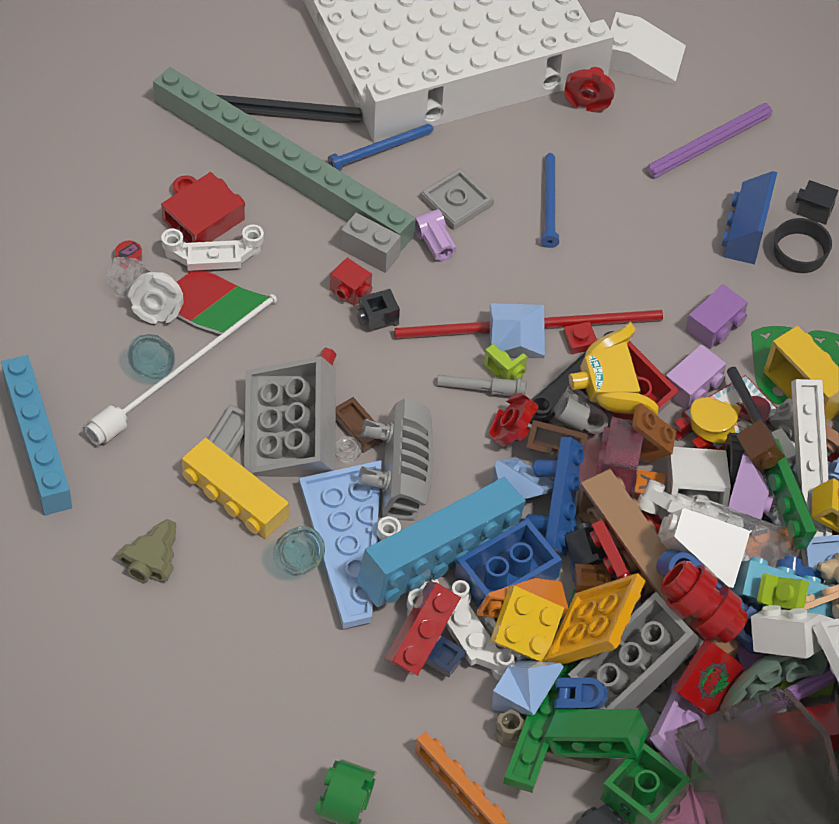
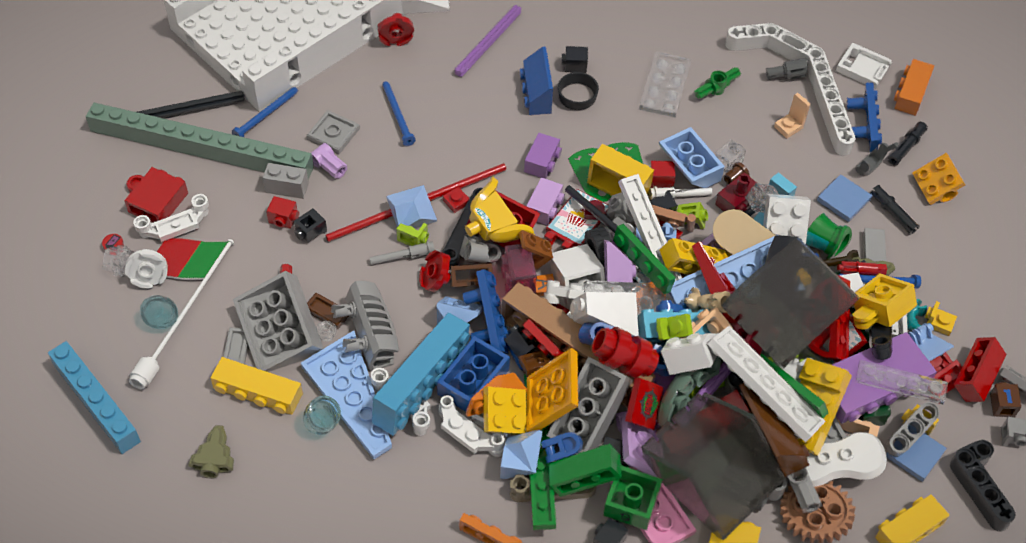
camera: 20 degrees left, 0 degrees up
(422, 628) = (432, 439): red brick -> none
(446, 656) = (455, 453): dark blue tile -> none
(712, 419) = (570, 225): yellow piece -> none
(760, 445) = (615, 232): reddish brown brick -> none

